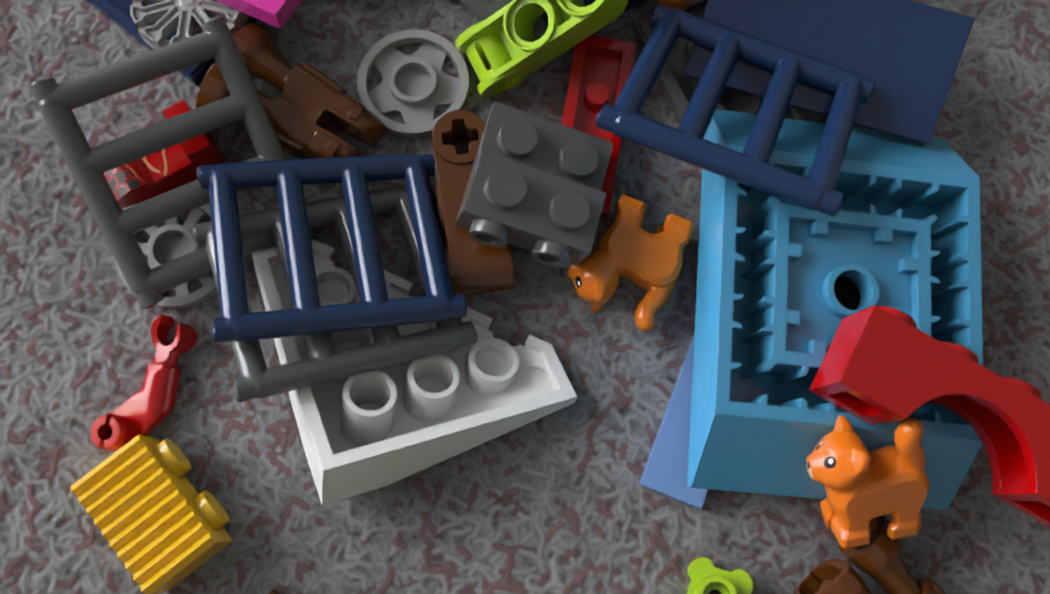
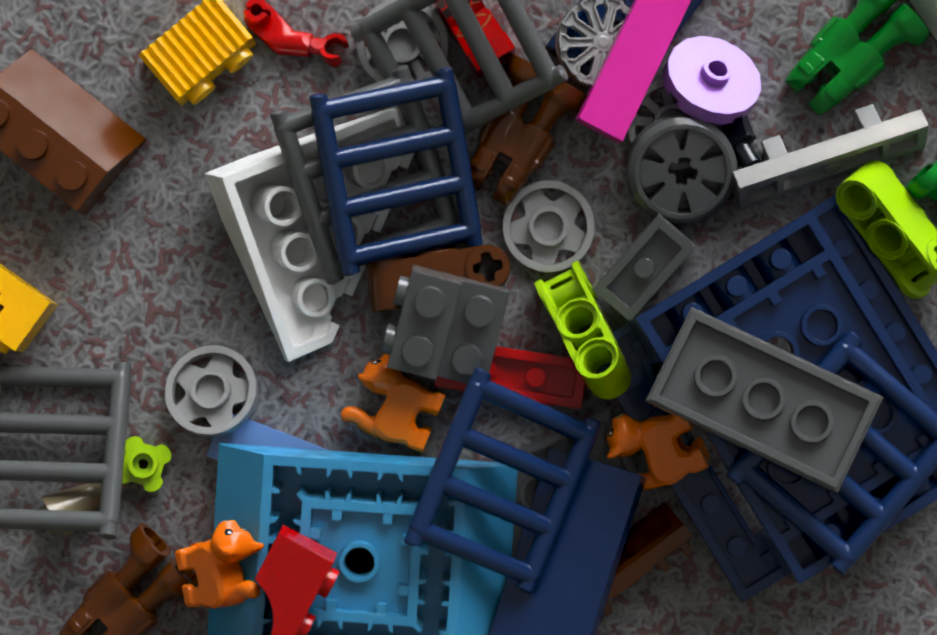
camera: 90 degrees right, 10 degrees up
(616, 501) = (211, 391): none -> light grey wheel

